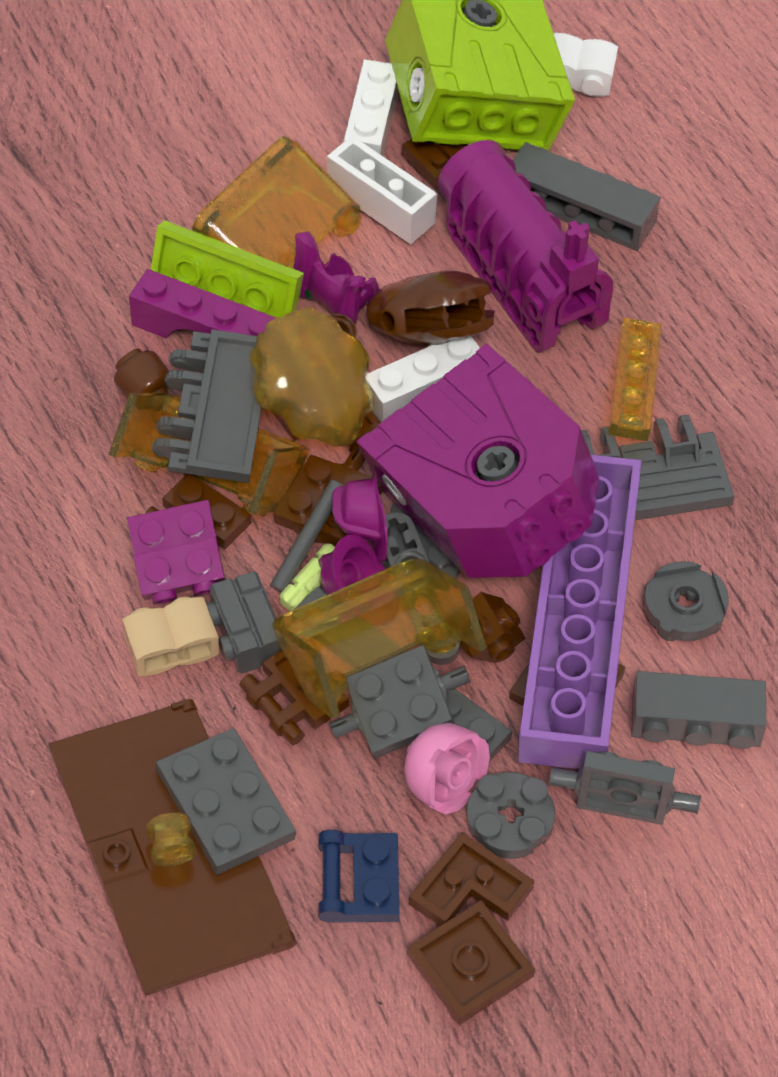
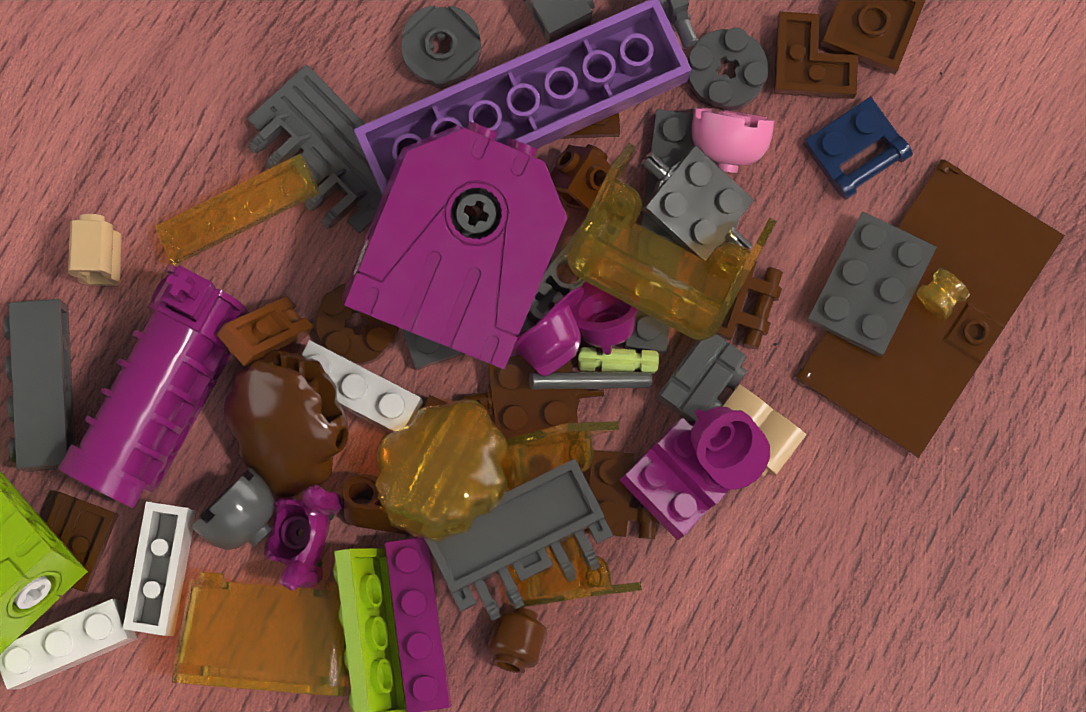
camera: 125 degrees left, 25 degrees up
(172, 577) = (730, 446): none -> magenta piece
(383, 250) = (238, 514): none -> dark grey cylinder
(517, 325) = (264, 330): none -> dark orange plate
(663, 266) = (94, 251): none -> tan brick

